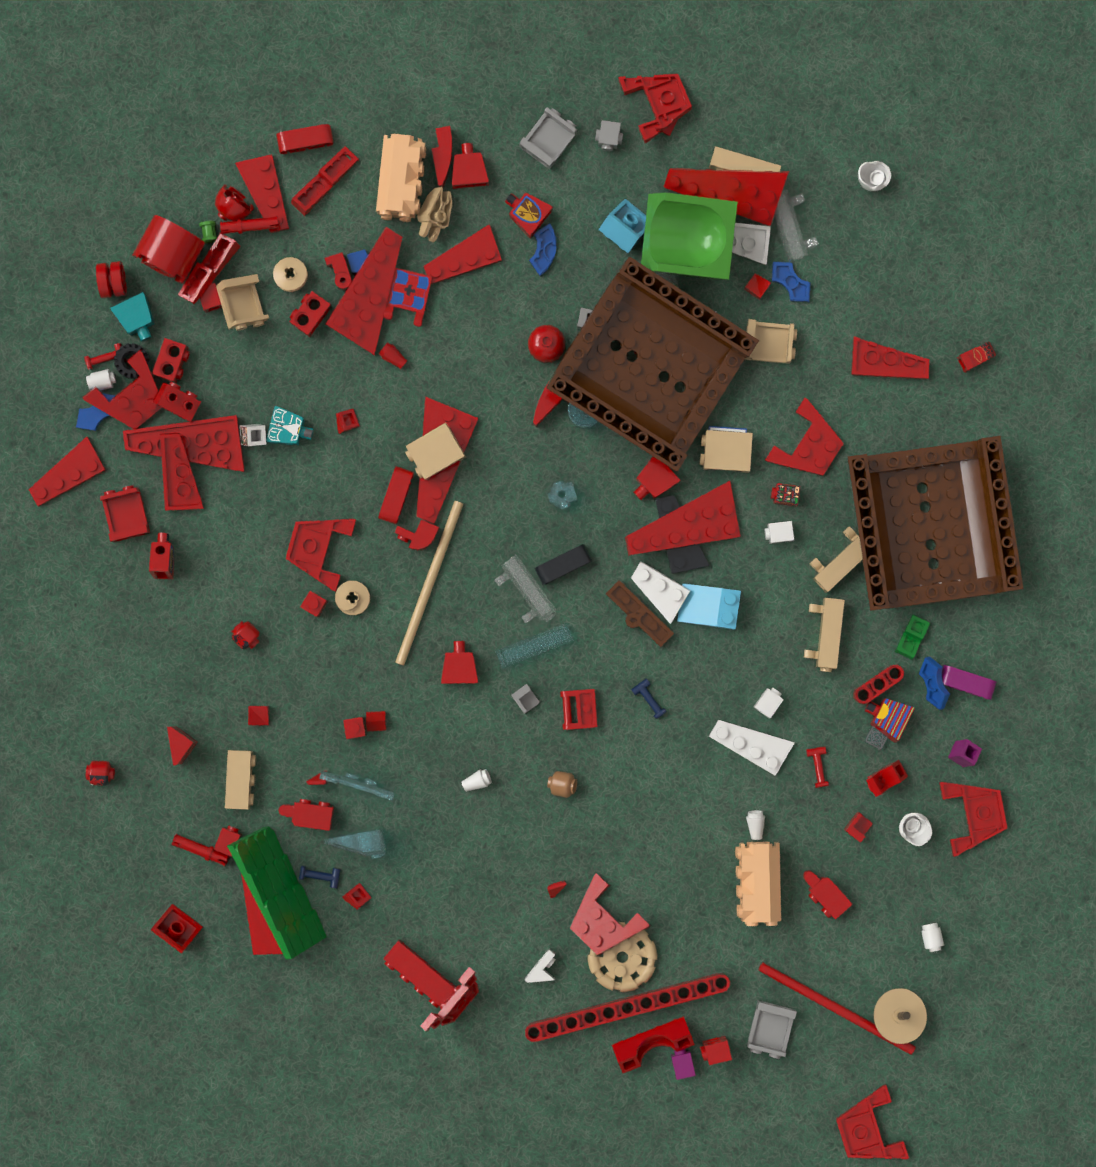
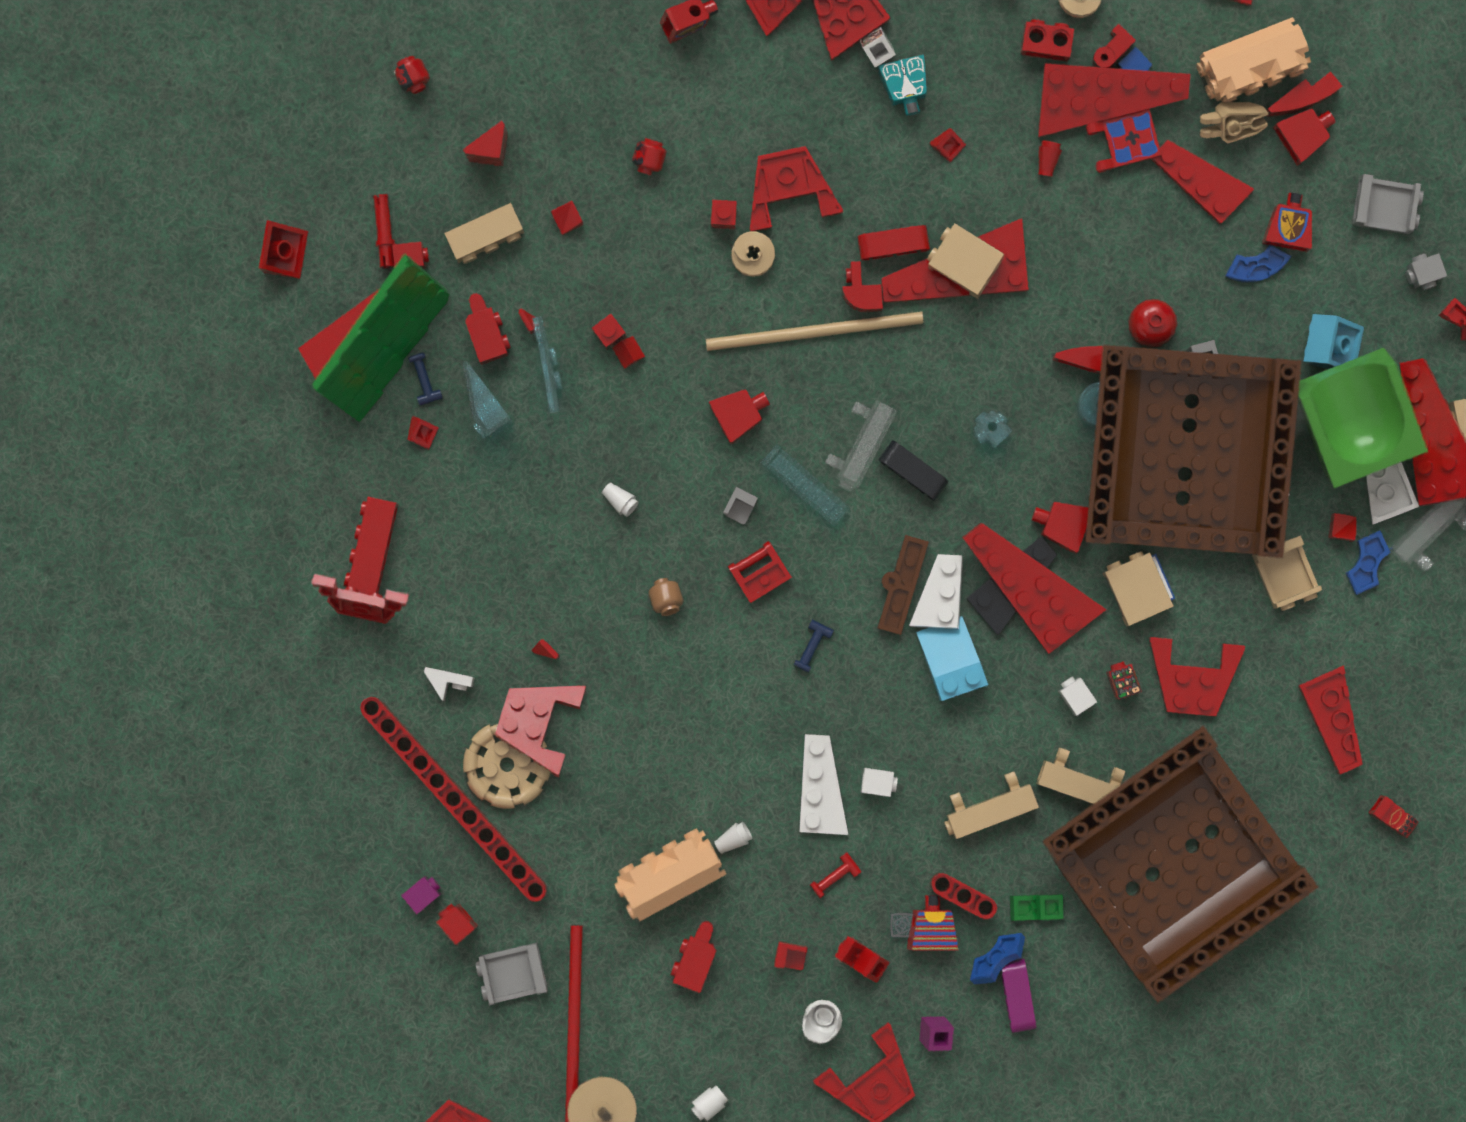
camera: 60 degrees right, 0 degrees up
(632, 1050) = (449, 865): red arch -> none

